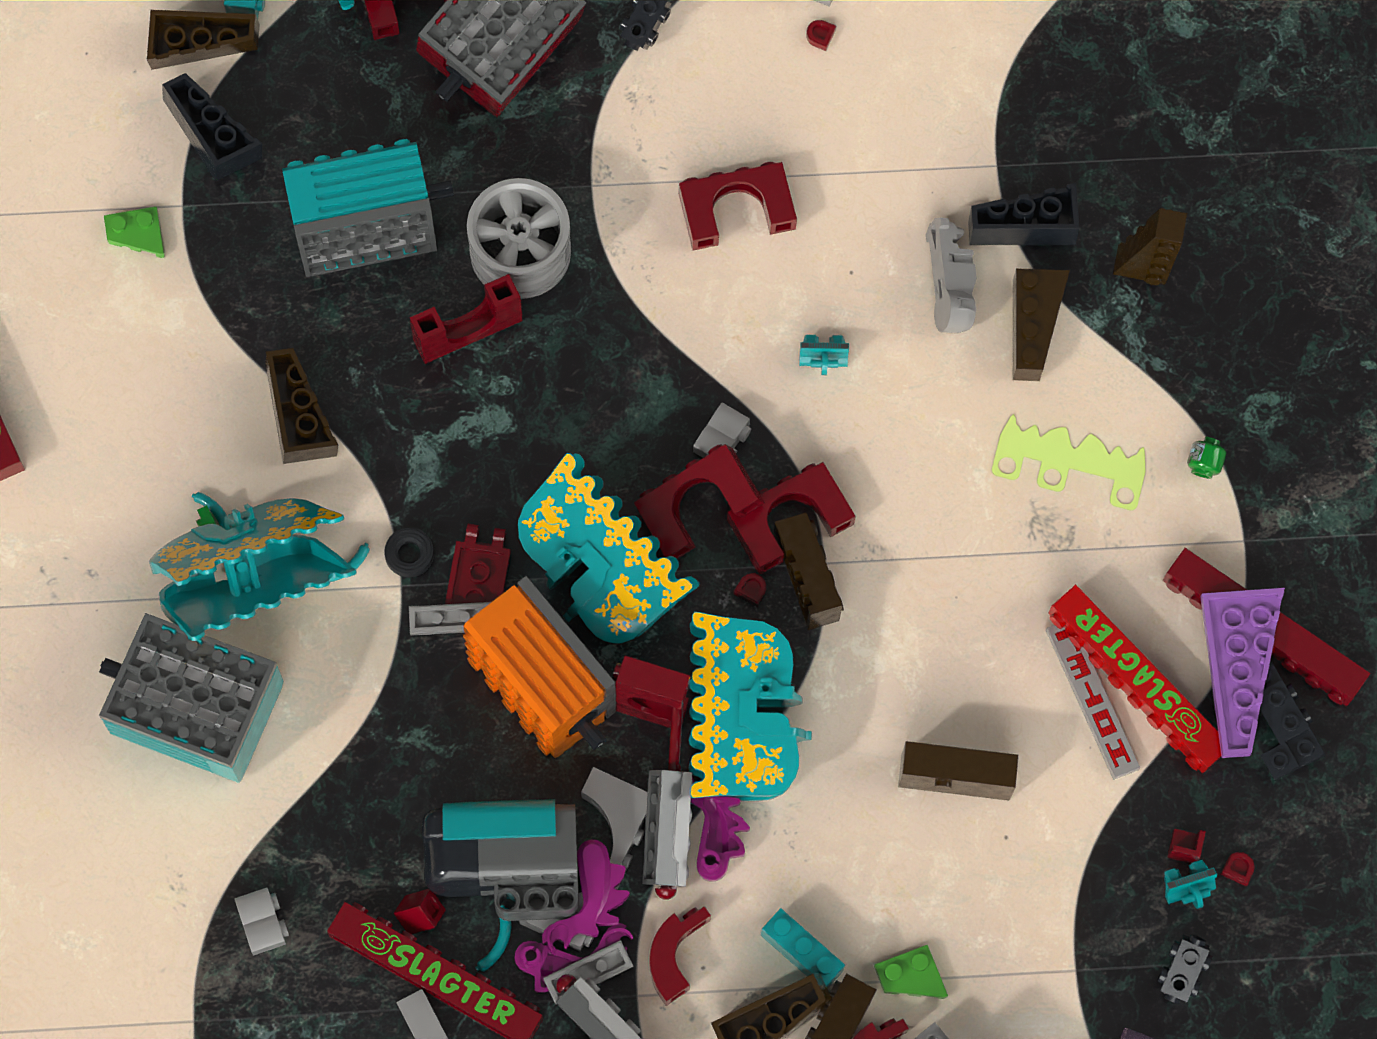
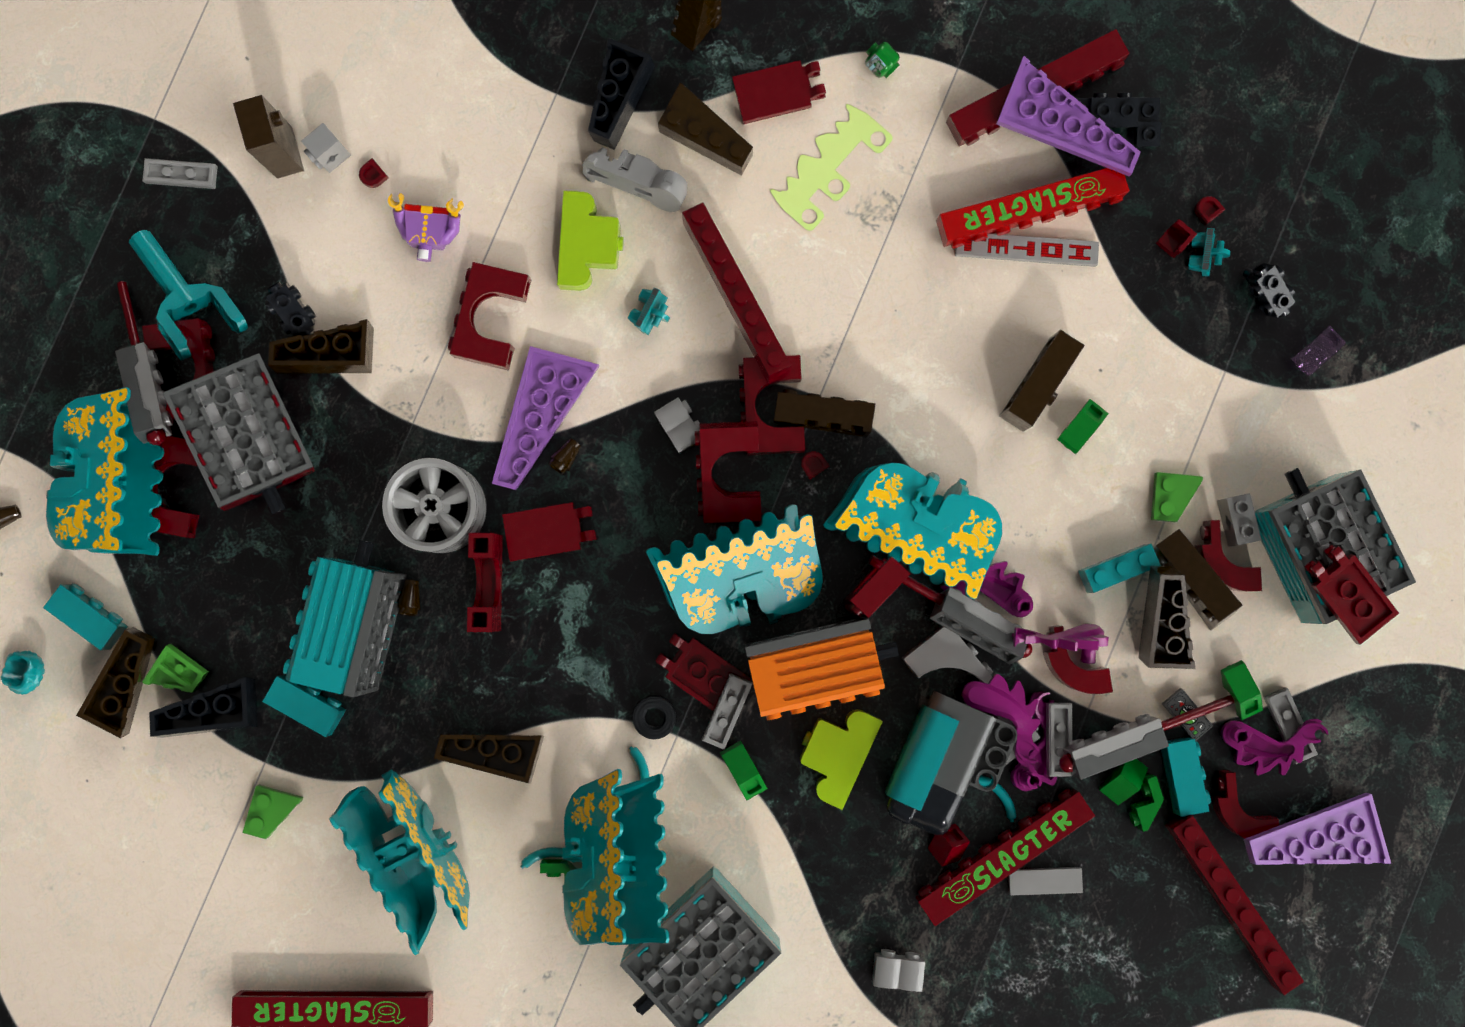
camera: 60 degrees left, 15 degrees up
(147, 379) = (408, 864): none -> teal animal
(235, 81) = (176, 670): none -> bright green wing
(259, 213) = (305, 705): none -> teal brick
(396, 664) = (743, 770): none -> green slope
(412, 262) = (409, 598): none -> dark brown cone
(461, 753) = (839, 754): none -> lime brick
(548, 360) = (546, 531): none -> dark red tile
(623, 75) = (329, 351): none -> dark brown wedge
(632, 341) = (564, 457): none -> dark brown cone
(681, 294) = (543, 400): none -> medium lavender wing
(715, 949) = (1085, 637): none -> magenta animal
(795, 104) = (426, 226): none -> medium lavender torso
(860, 259) = (585, 241): none -> lime brick
(884, 423) = (736, 293): none -> dark red brick
(934, 839) = (1082, 426): none -> green slope
(1117, 372) = (777, 90): none -> dark red tile

